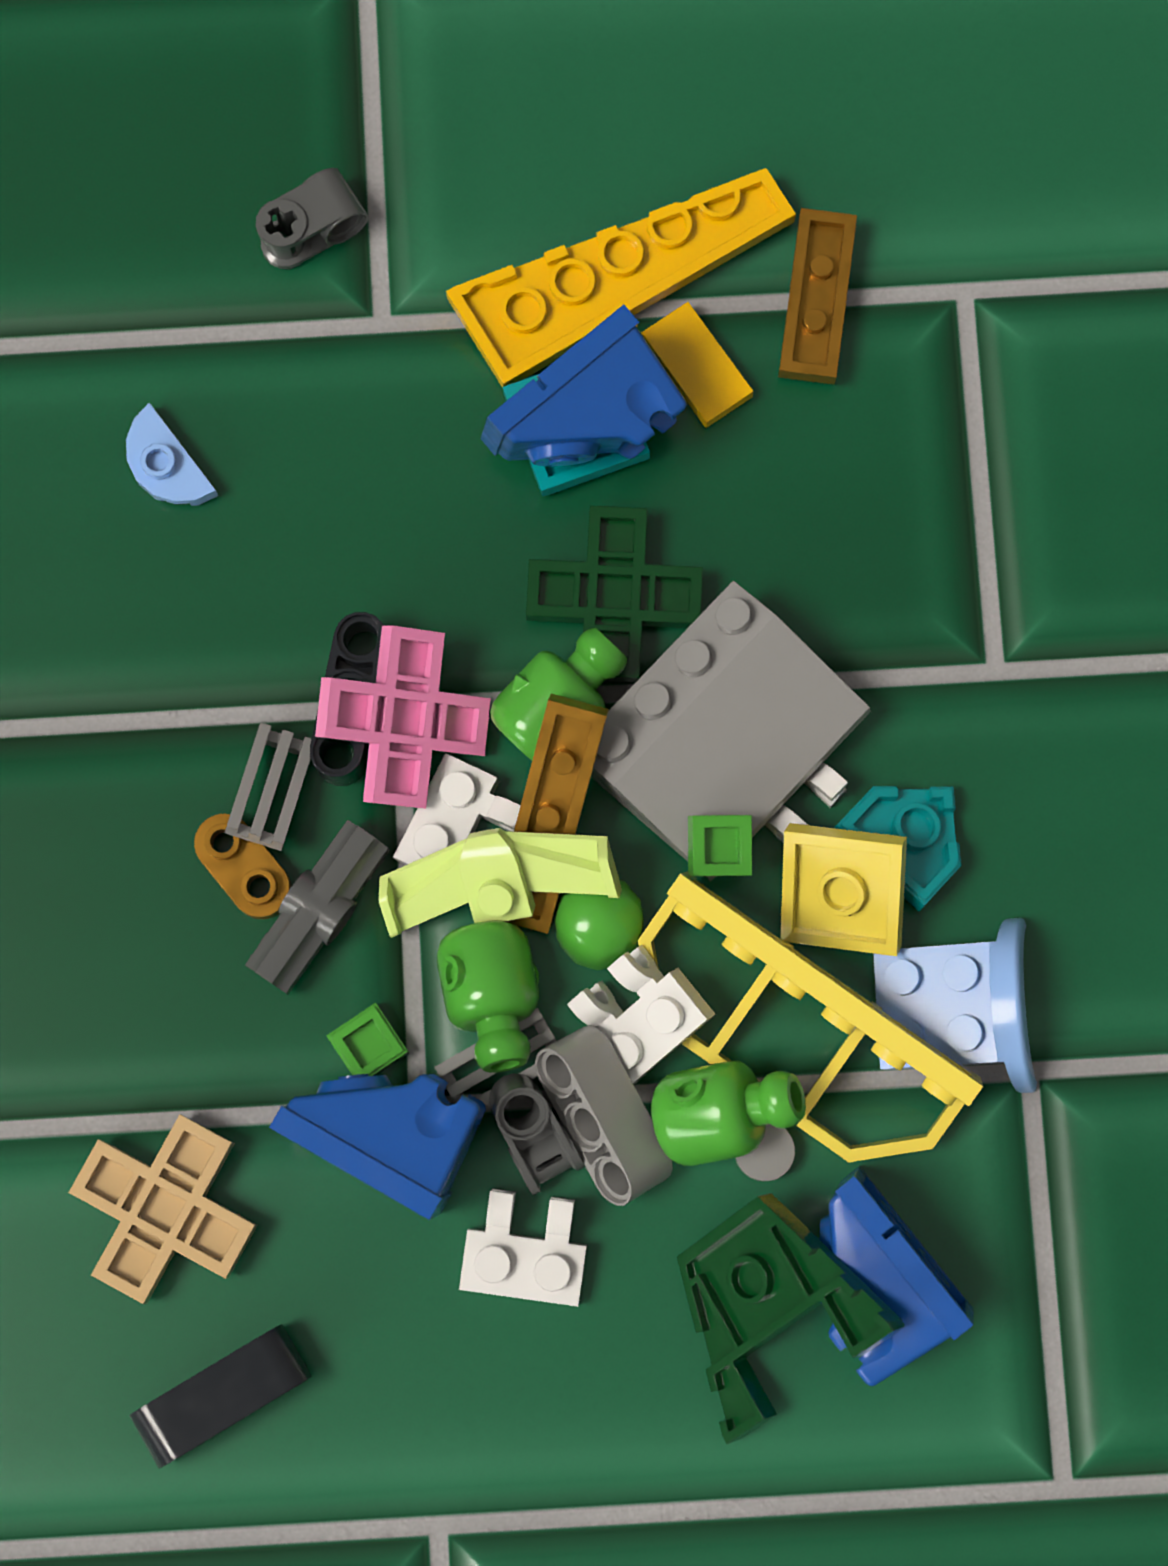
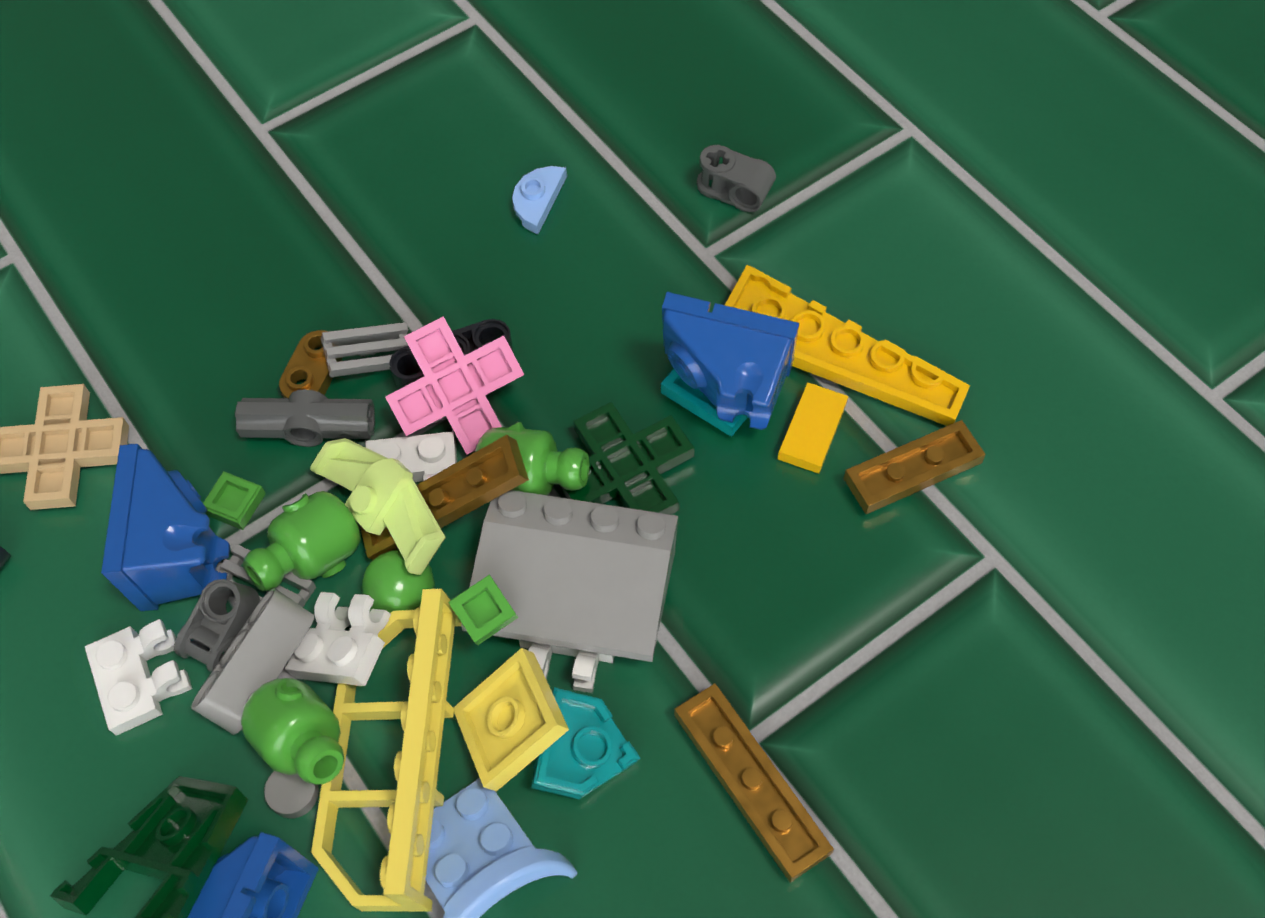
camera: 55 degrees right, 20 degrees down
(1044, 694) = (753, 783): none -> pearl gold plate

